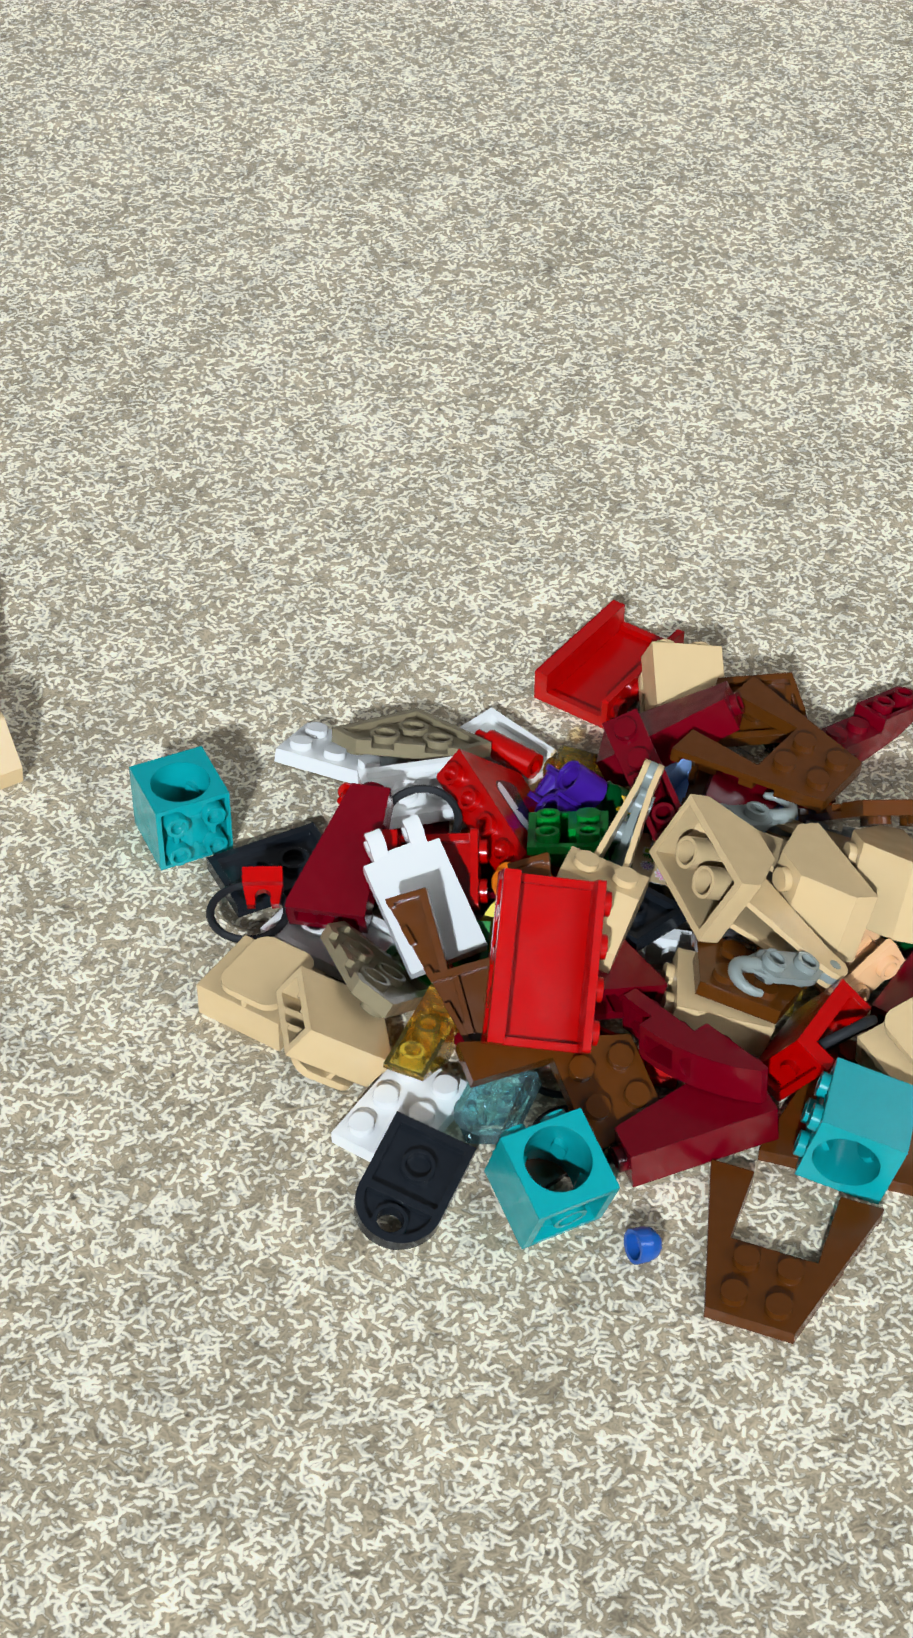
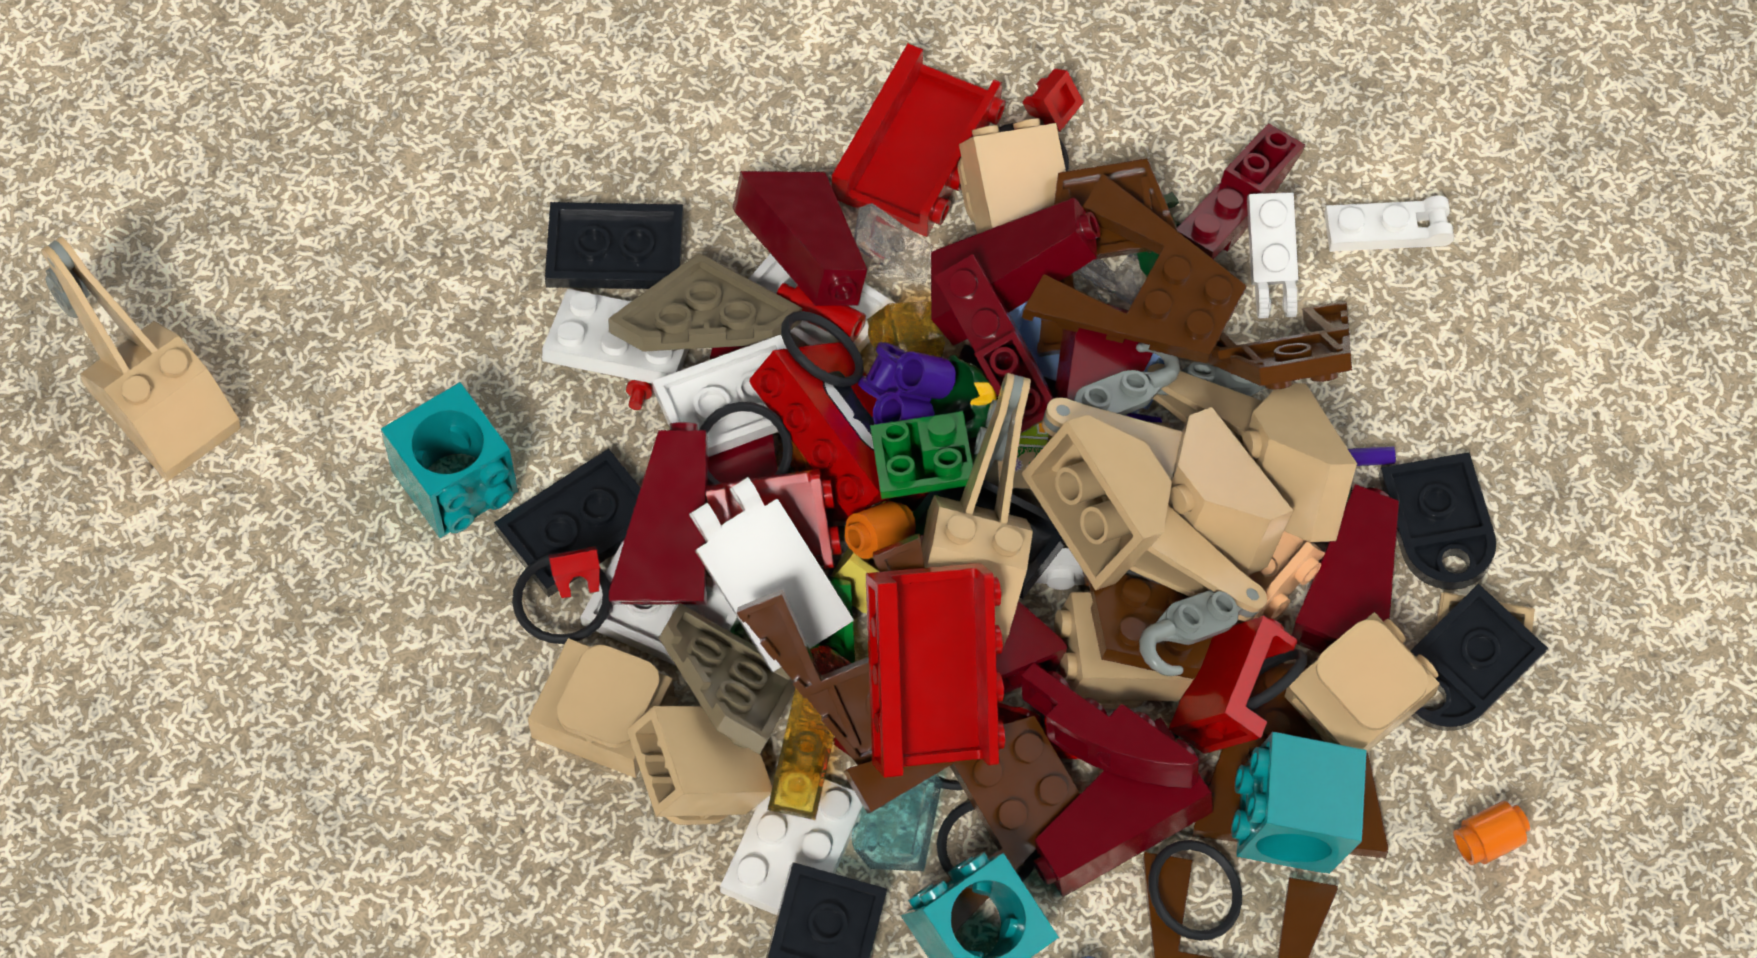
camera: 10 degrees left, 20 degrees up
(348, 696) = (612, 244): none -> black plate
(496, 775) = (811, 367): none -> black tyre
(503, 698) = (804, 232): none -> dark red slope
(572, 722) = (890, 247): none -> clear slope
(732, 650) = (1054, 99): none -> red tile
(752, 1228) = (1153, 880): none -> black tyre
(890, 757) = (1273, 249): none -> white hinge

